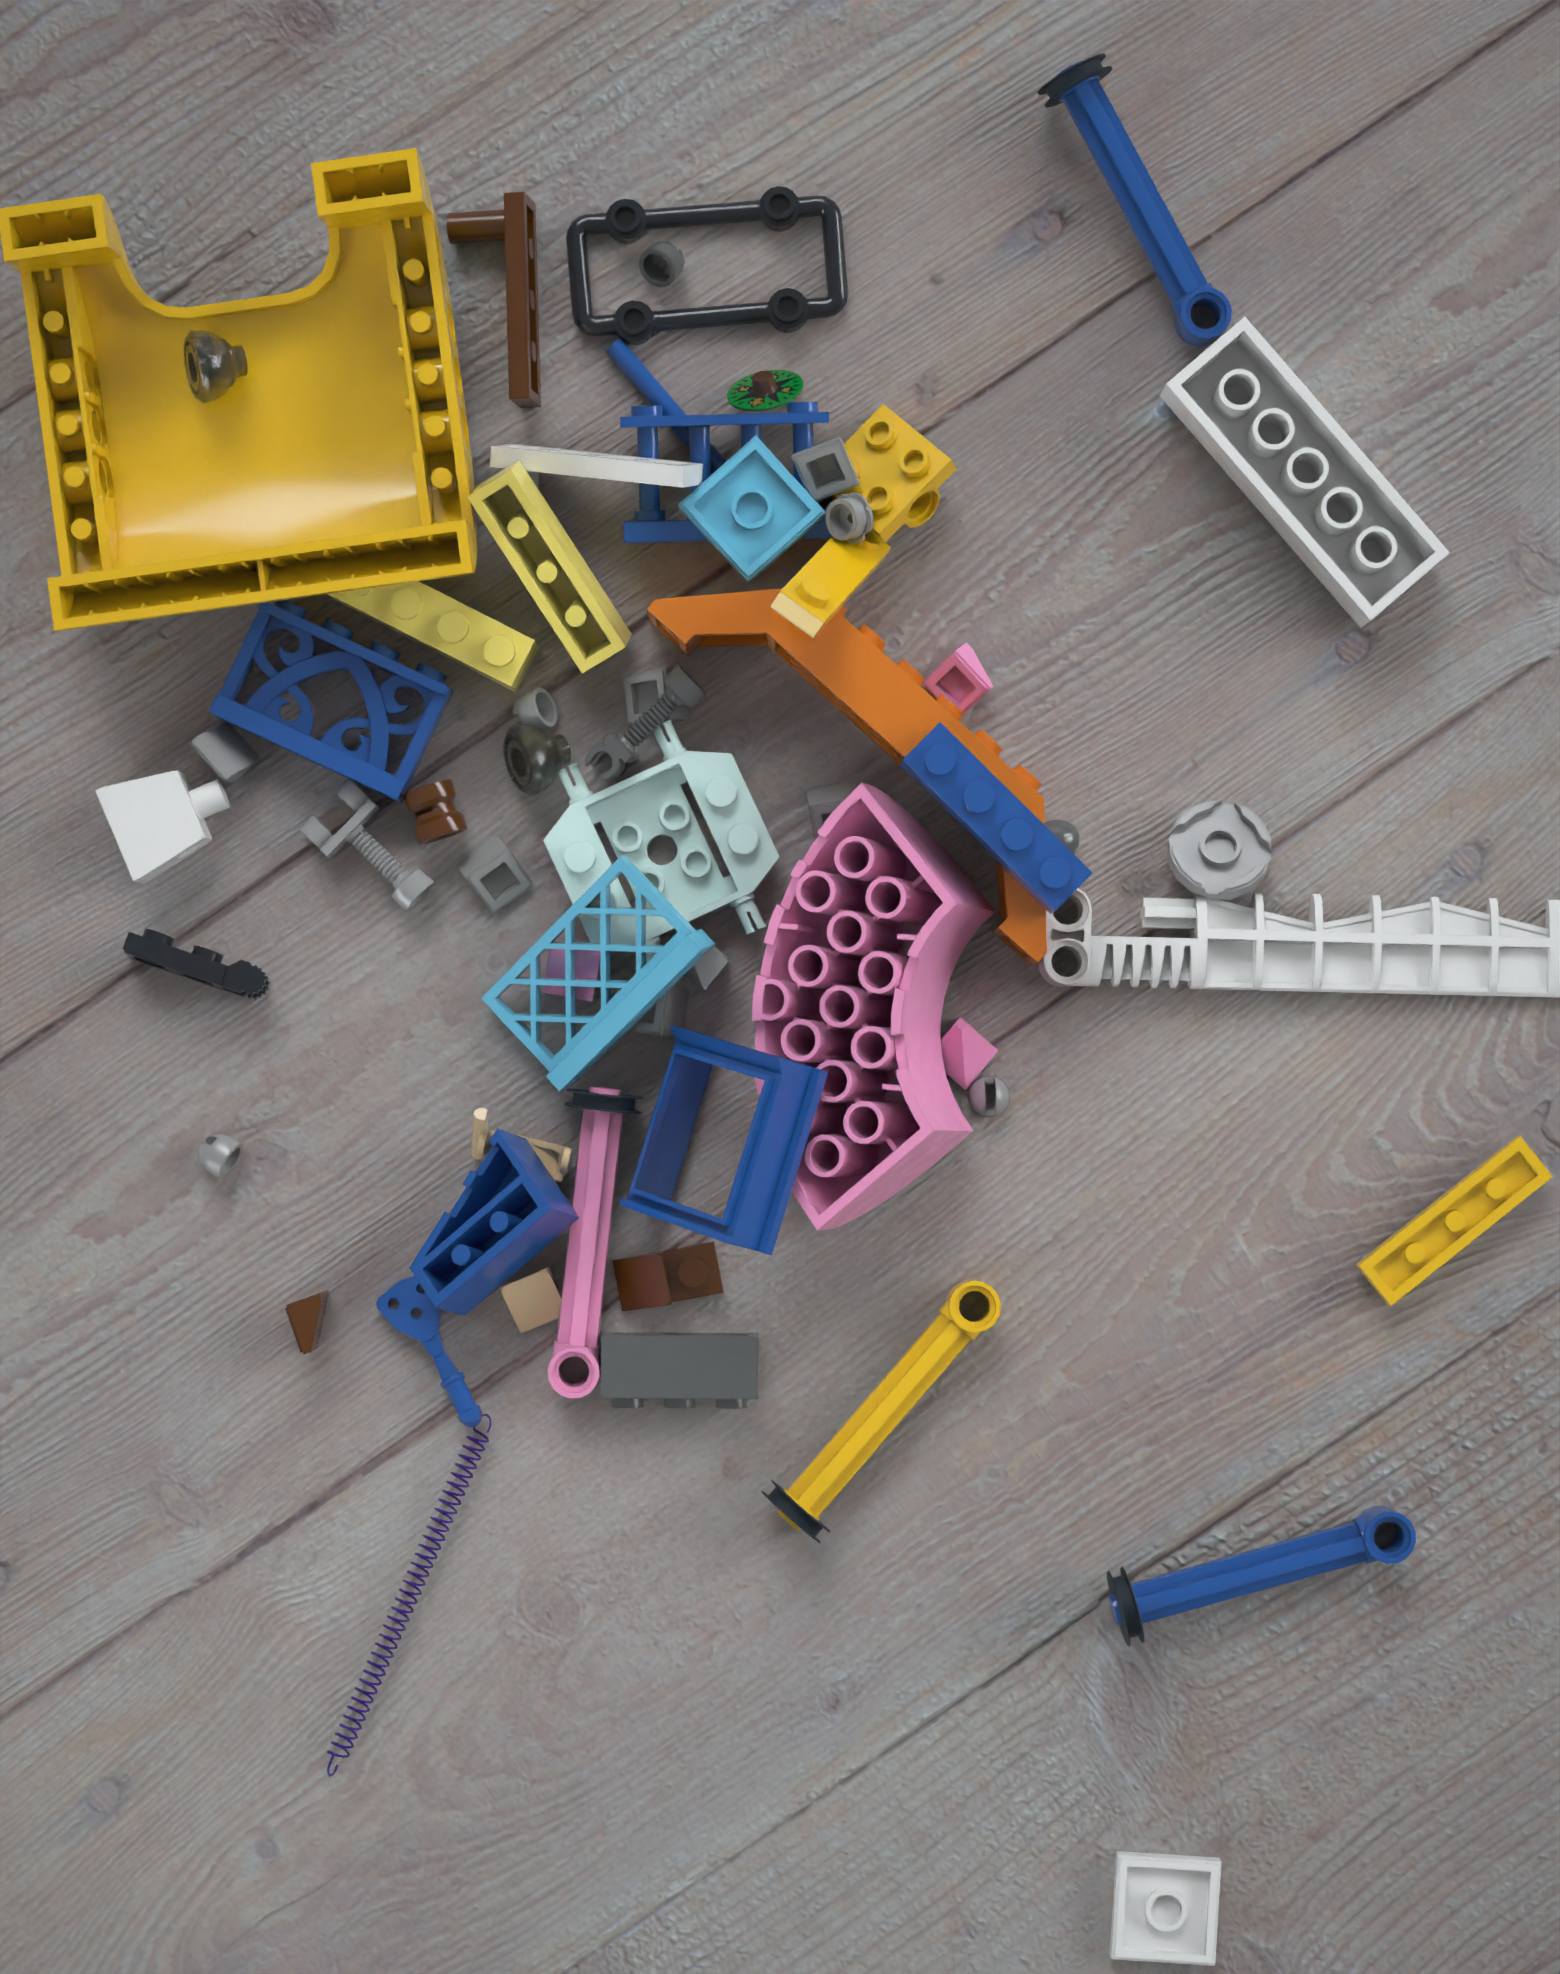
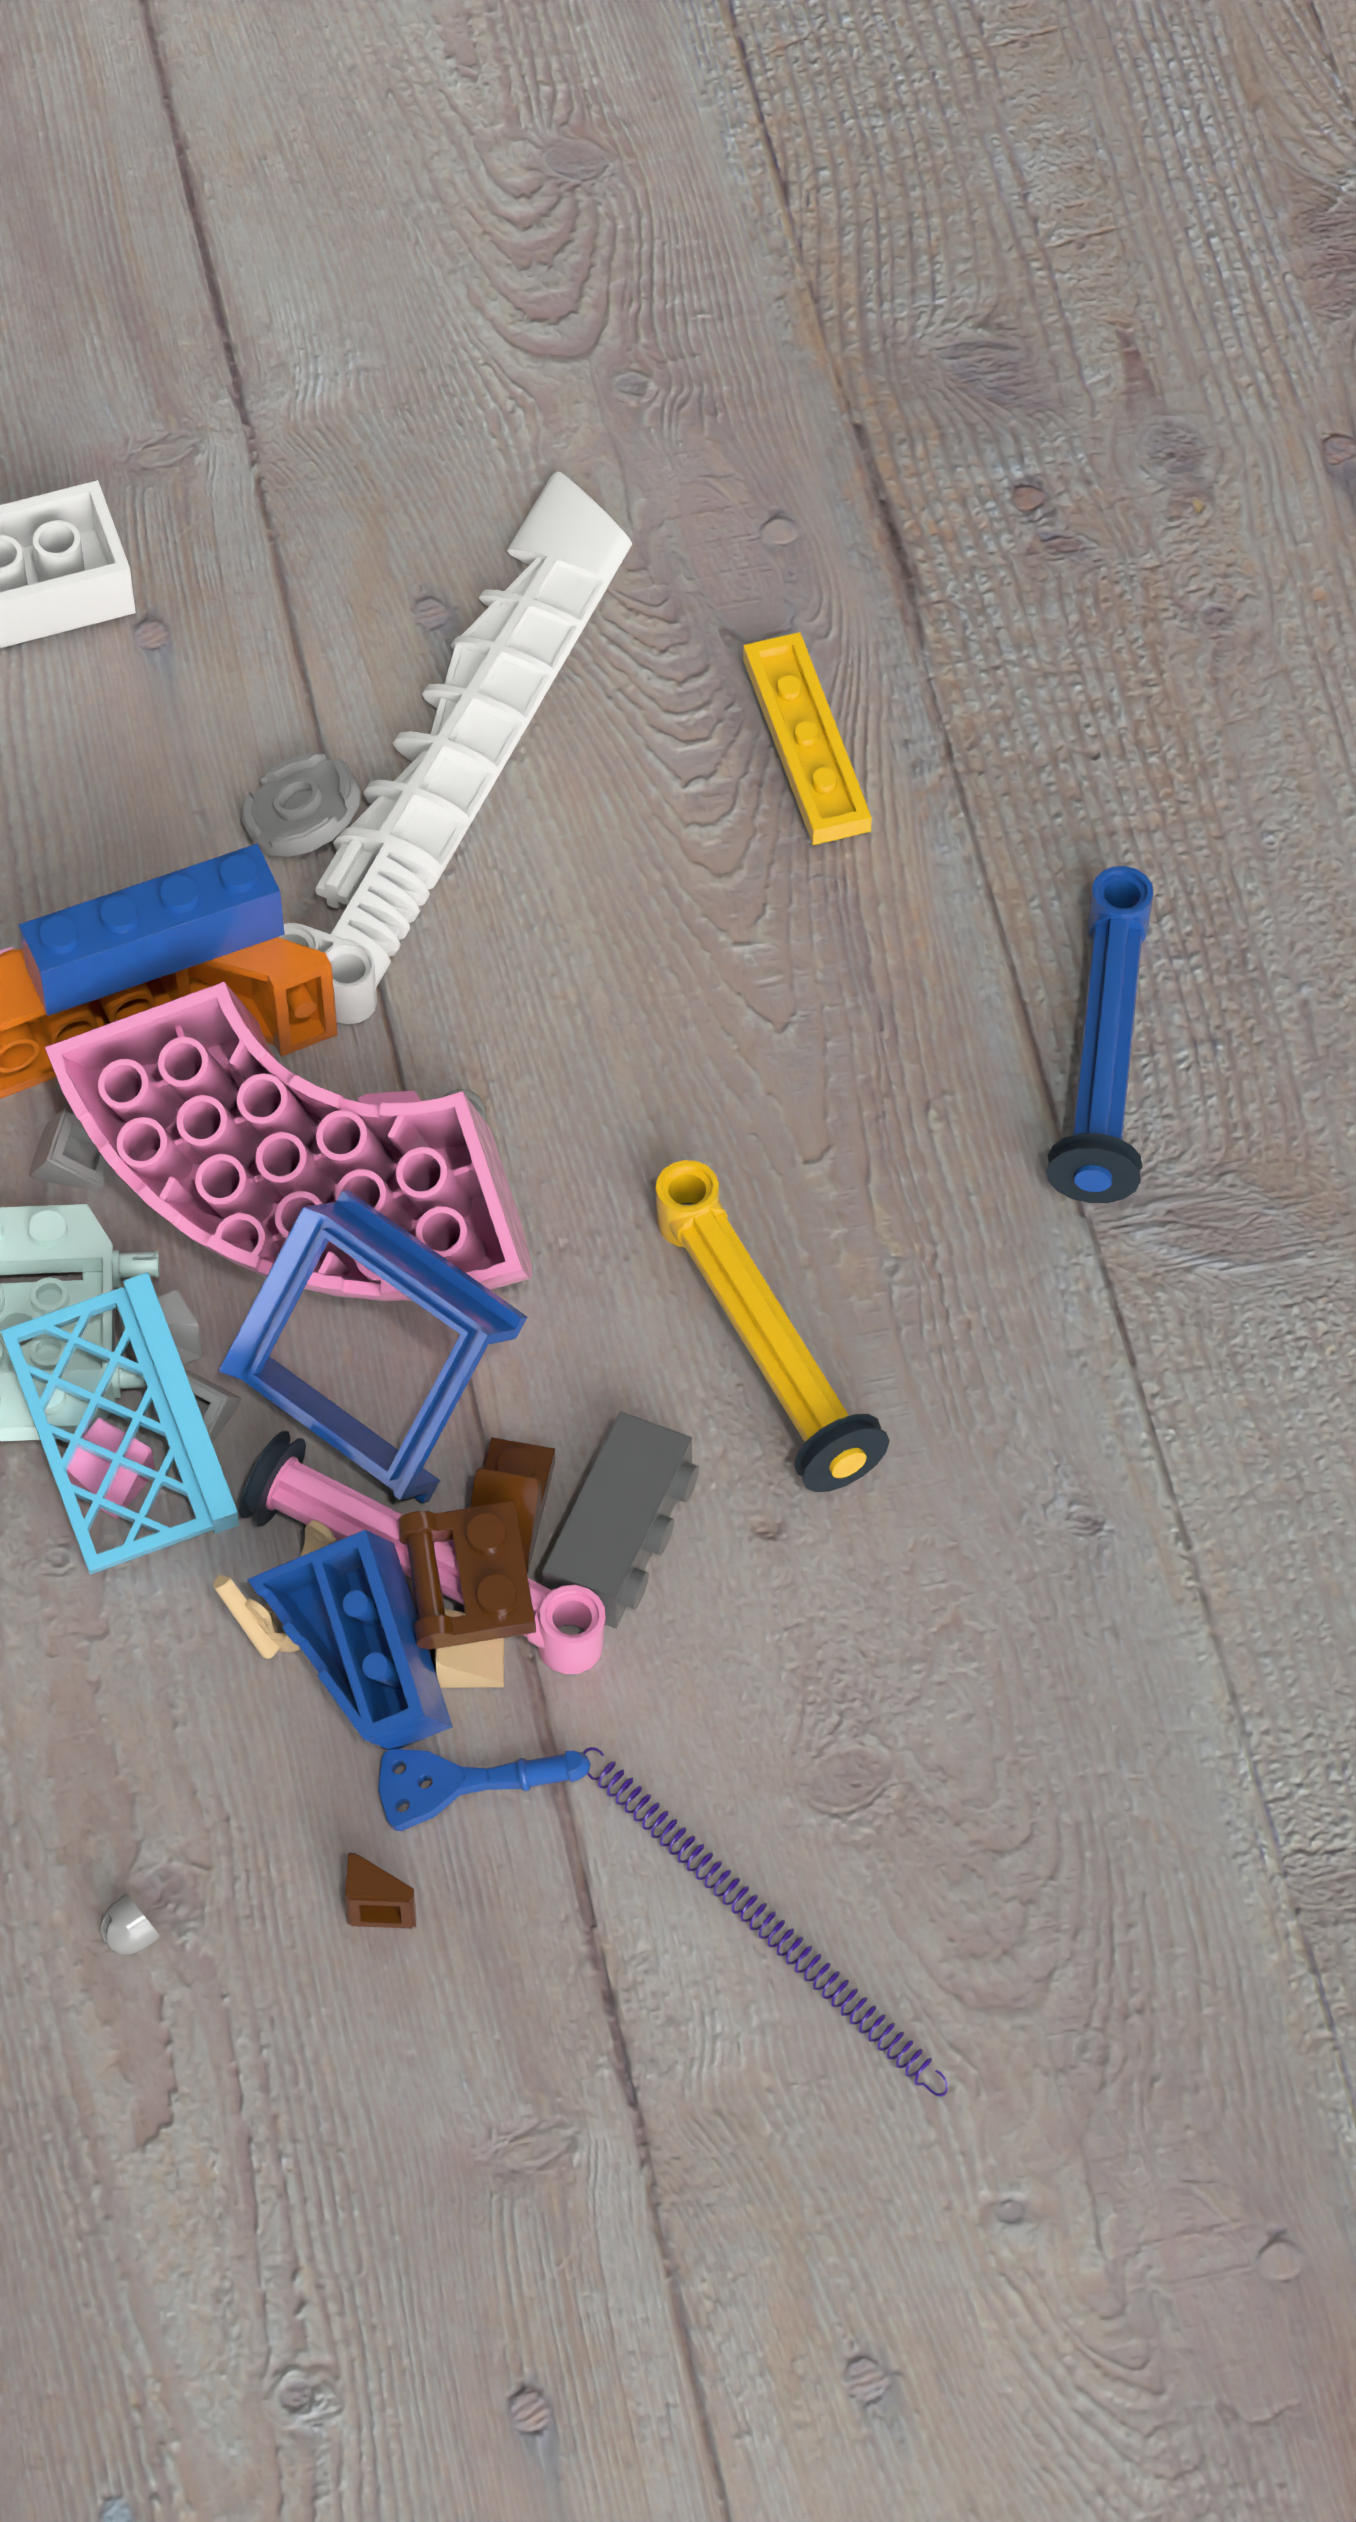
camera: 65 degrees left, 30 degrees down
(578, 1300) = (489, 1573): none -> reddish brown plate

